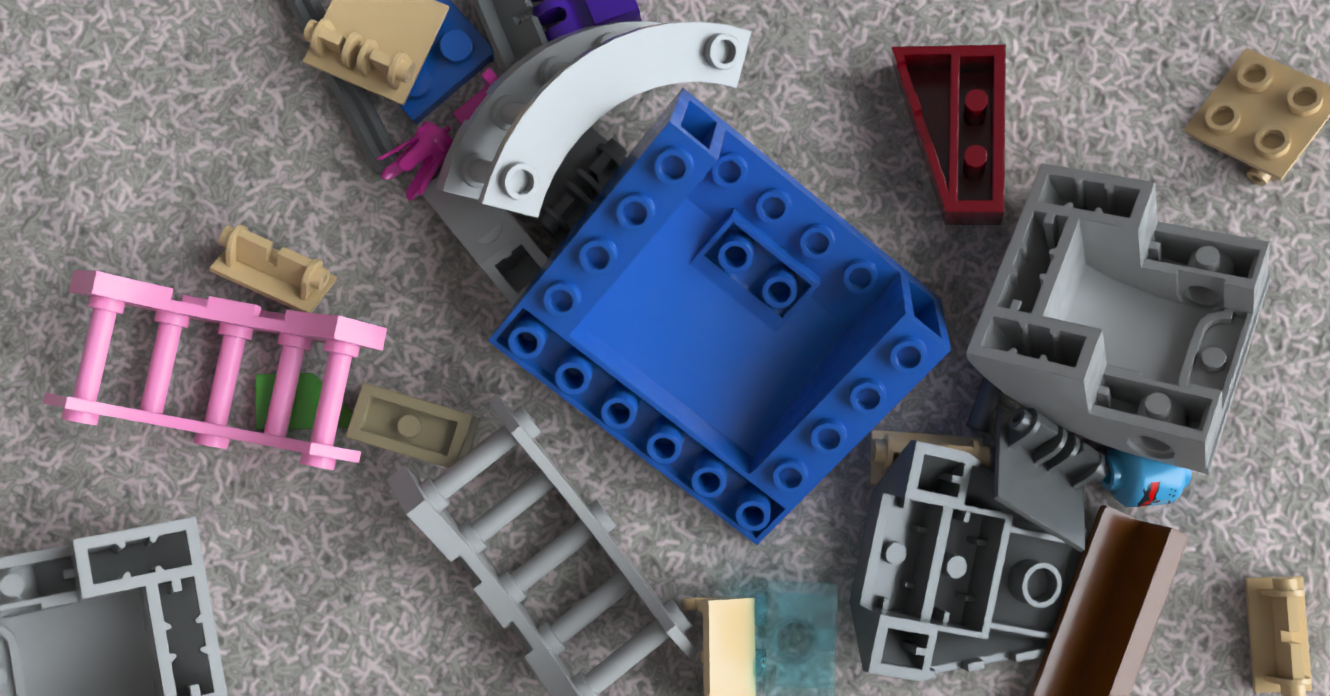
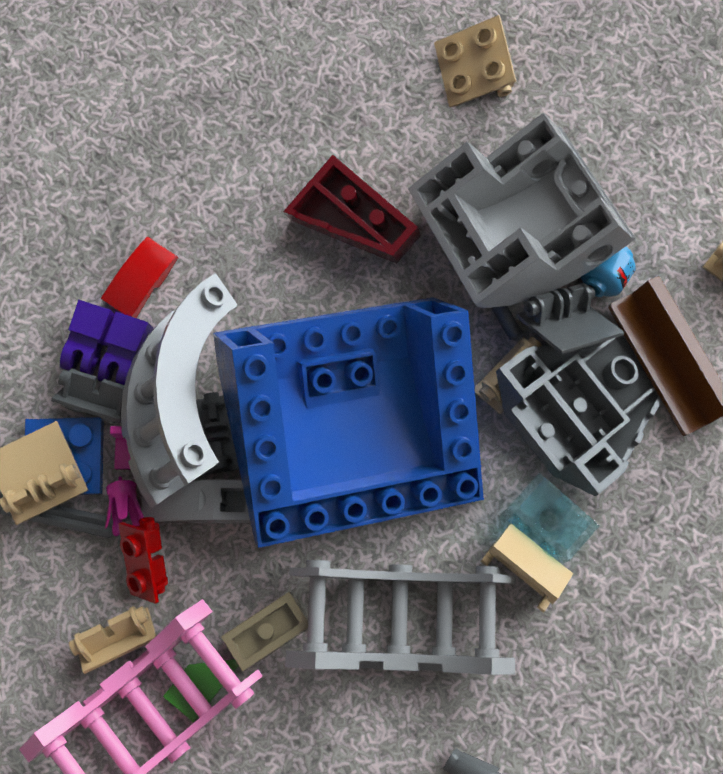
camera: 50 degrees left, 5 degrees down
(366, 244) = (145, 574): none -> red hinge

